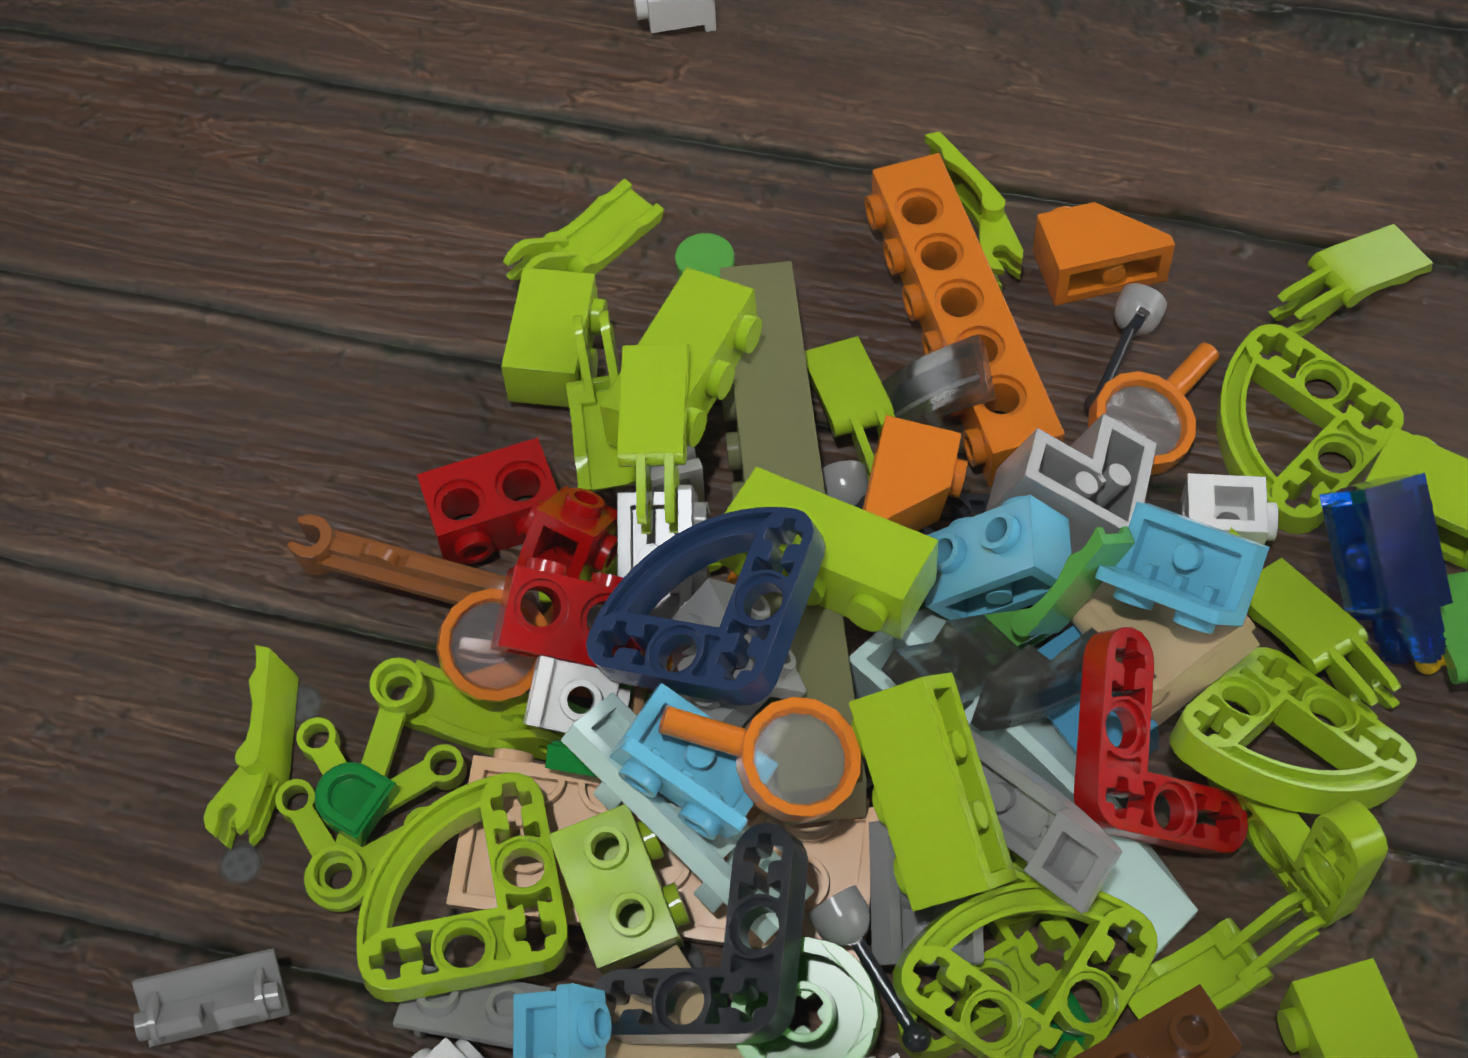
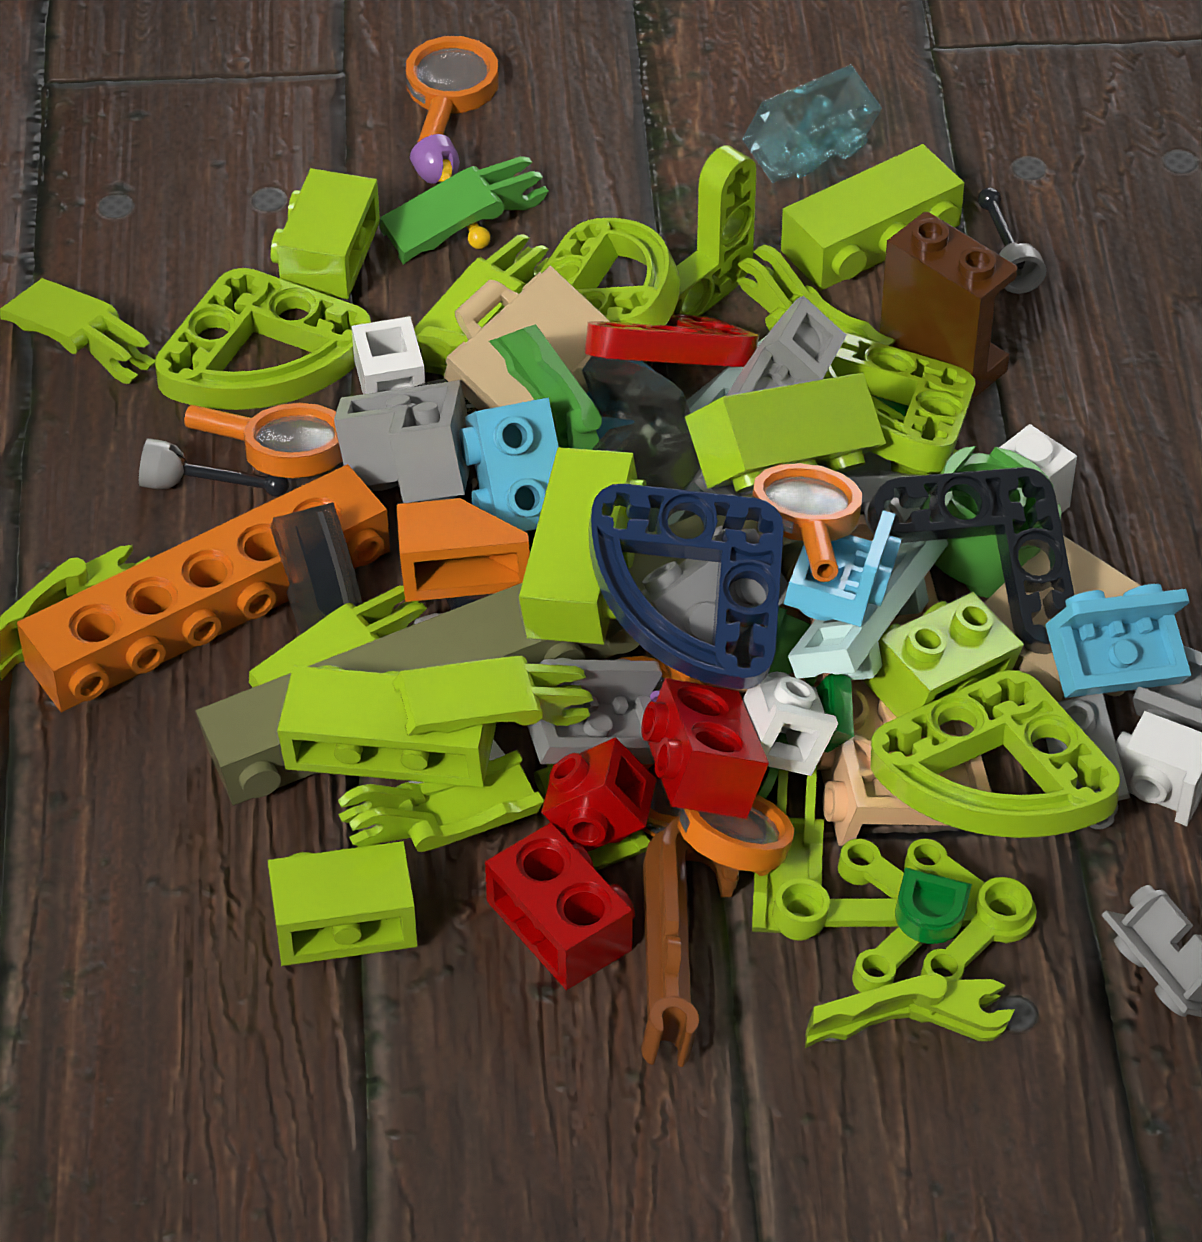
camera: 110 degrees left, 10 degrees down
(592, 238) = (178, 939): lime arm -> none
(704, 253) = (183, 823): bright green tile -> none
(1097, 252) = (101, 502): orange slope -> none
(1187, 568) = (519, 288): medium azure bracket -> none
(1391, 564) = (414, 230): clear blue hinge -> none

